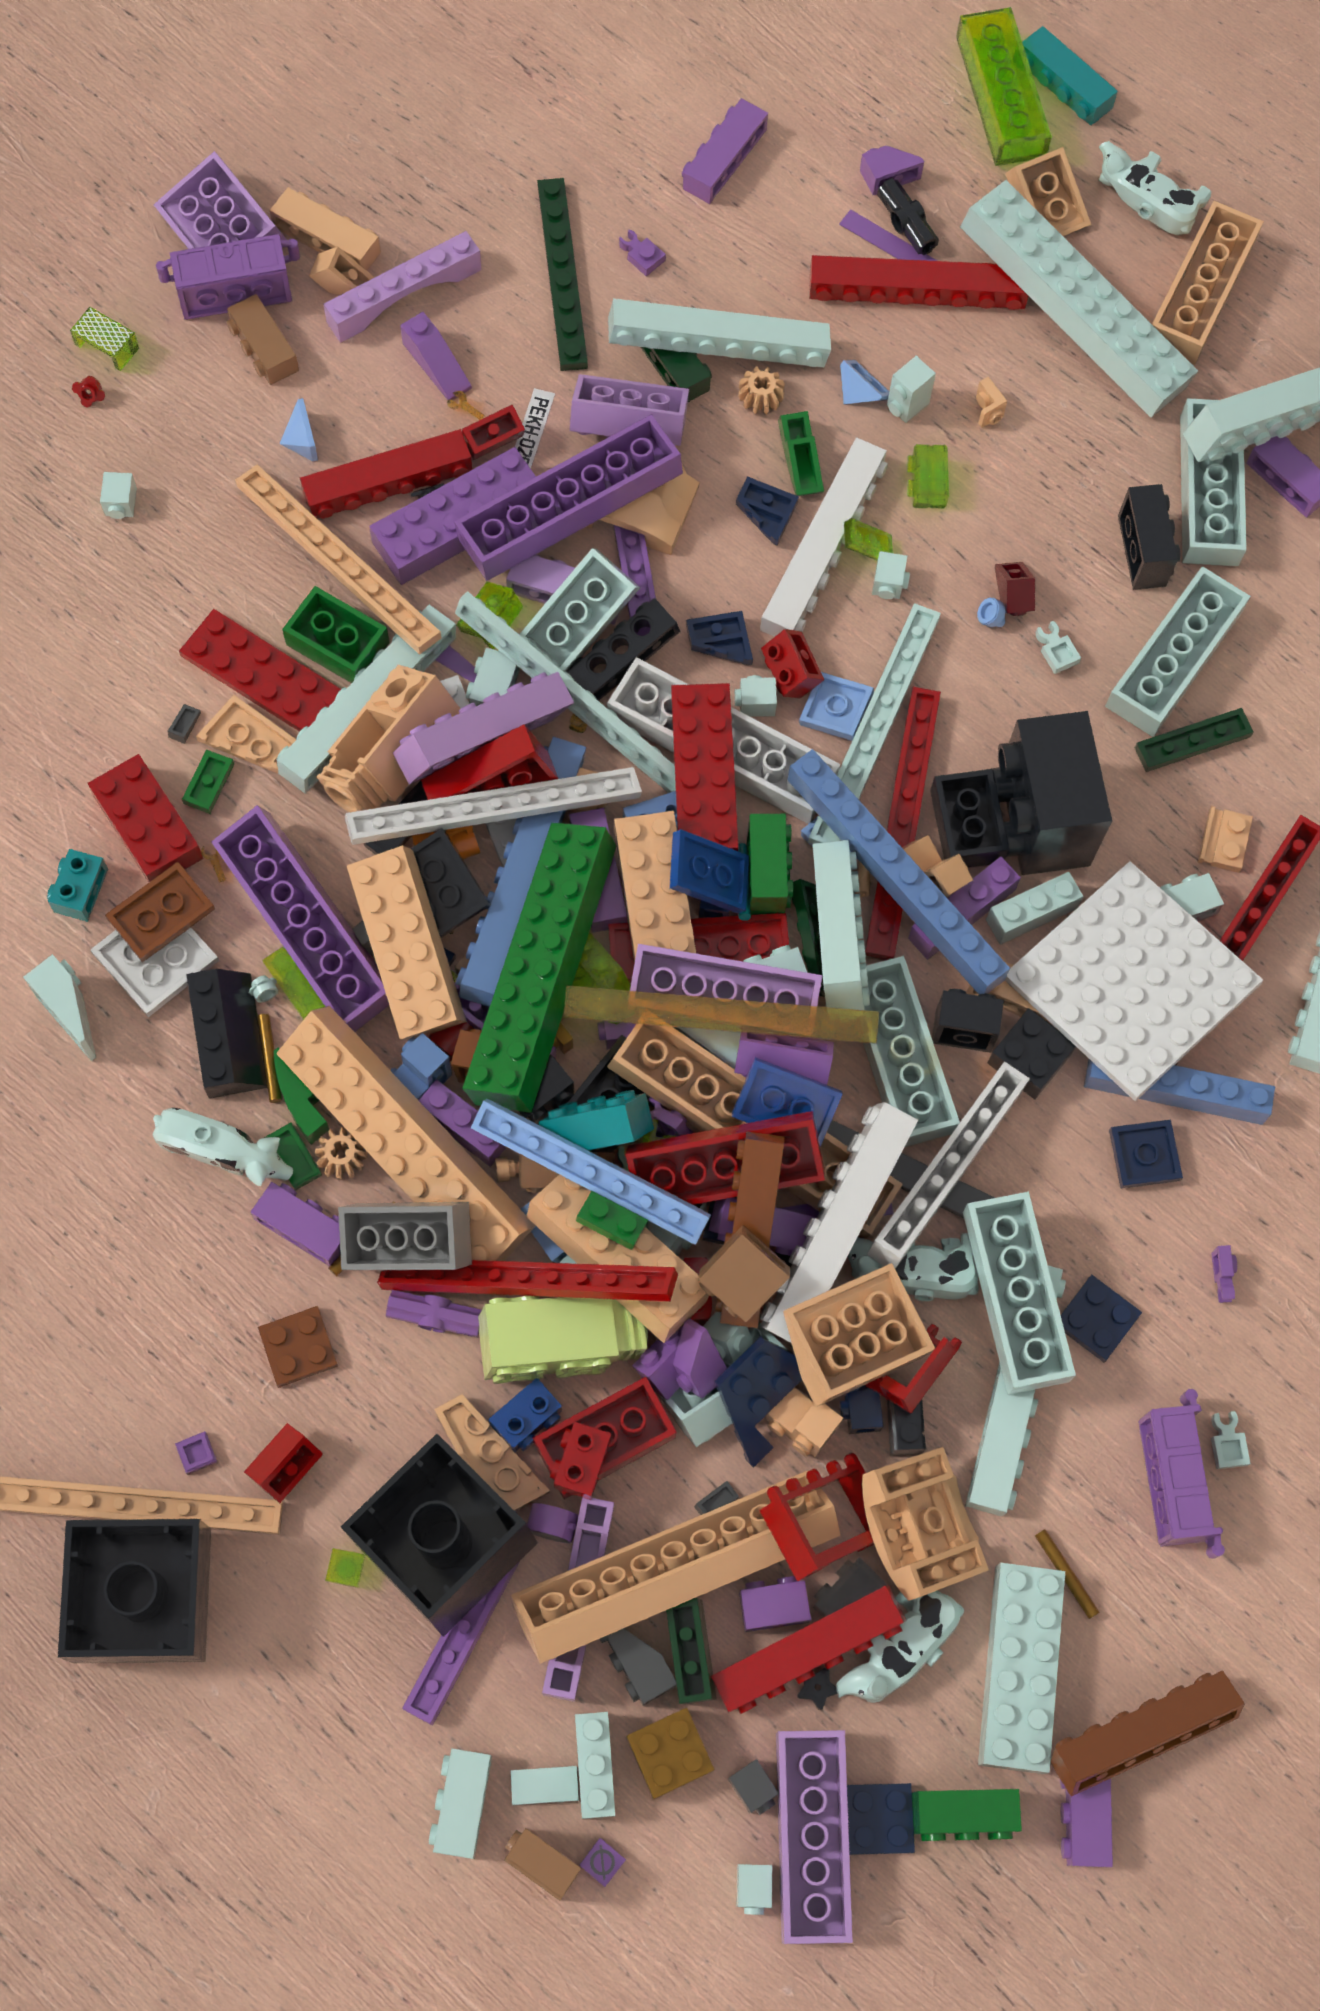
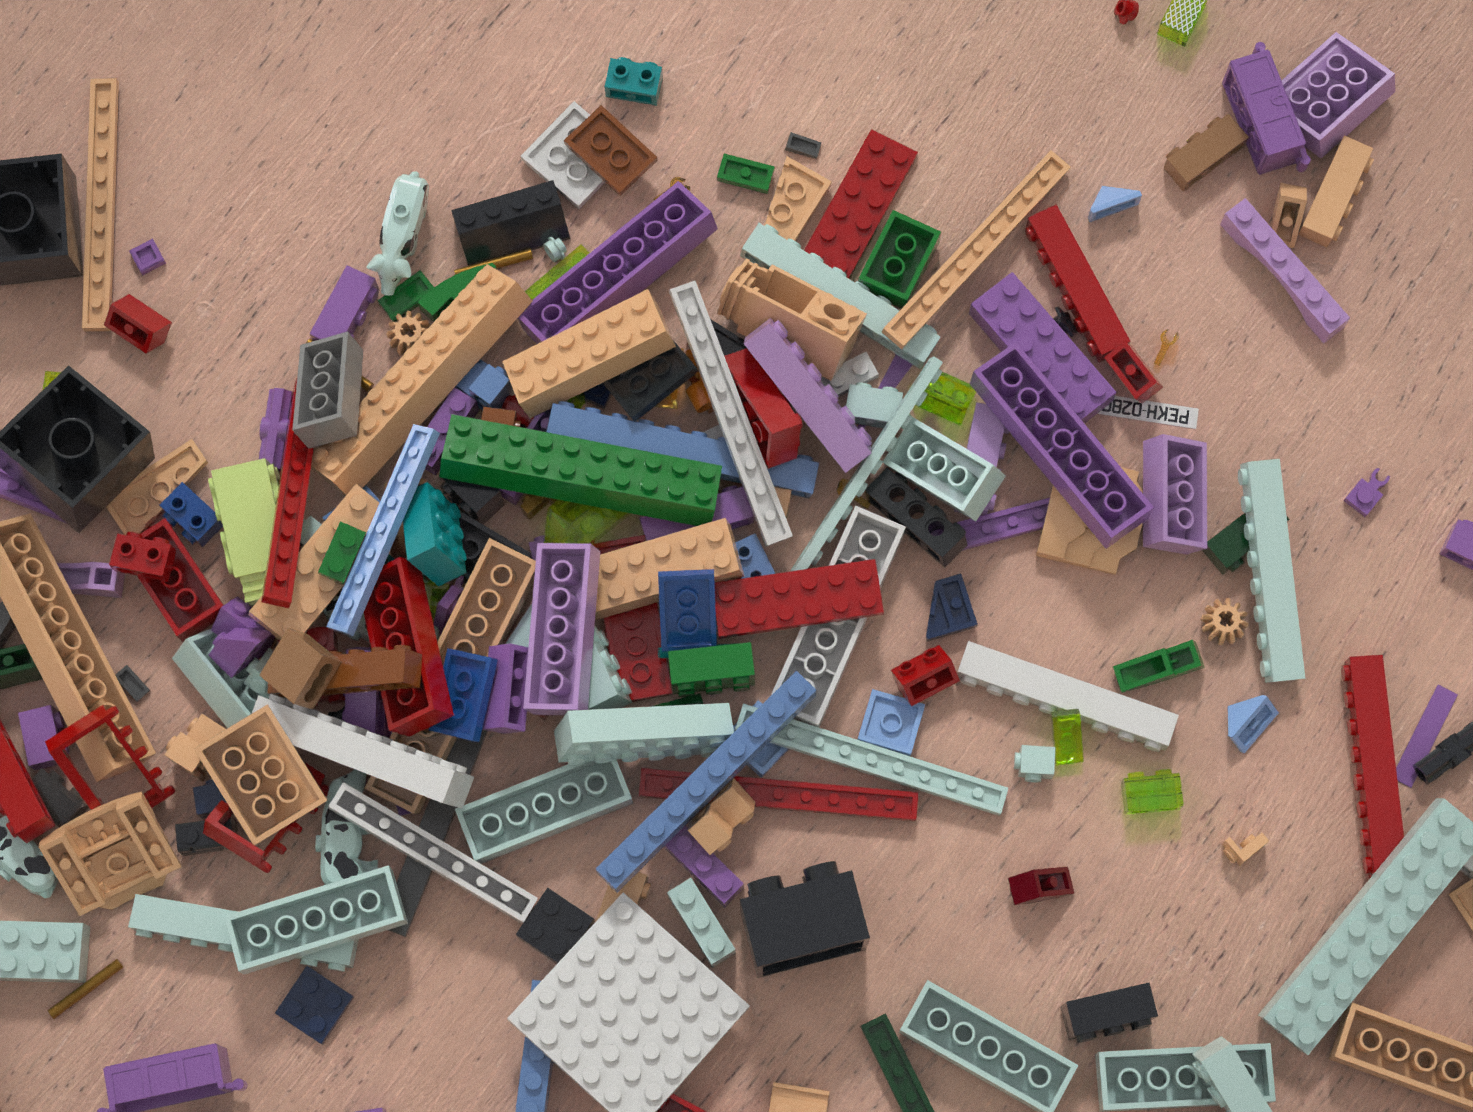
camera: 90 degrees right, 5 degrees up
(58, 991) = (517, 88): light aqua slope -> none
(118, 495) = (1020, 52): light aqua brick -> none
(144, 818) = (700, 126): red brick -> none
(297, 1346) = (241, 324): dark orange plate -> none
(434, 355) = (1212, 310): medium lavender slope -> none
(552, 1522) = (99, 543): medium lavender piece -> none
(562, 274) = (1330, 419): dark green plate -> none
(721, 1014) = (533, 627): clear yellow plate -> none
(753, 1389) = (214, 694): dark blue wing -> none
(756, 696) = (890, 646): light aqua brick -> none
(767, 507) = (1095, 639): dark blue wing -> none
(910, 389) = (1240, 763): light aqua brick -> none
(967, 1020) = (578, 863): black brick -> none
(969, 817) = (782, 850): black brick -> none
(991, 613) = (1009, 865): light blue tile -> none
(1058, 651) = (977, 934): light aqua plate -> none
(1145, 1154) = (470, 1041): dark blue plate -> none
(1196, 896) = (725, 1070): light aqua brick -> none

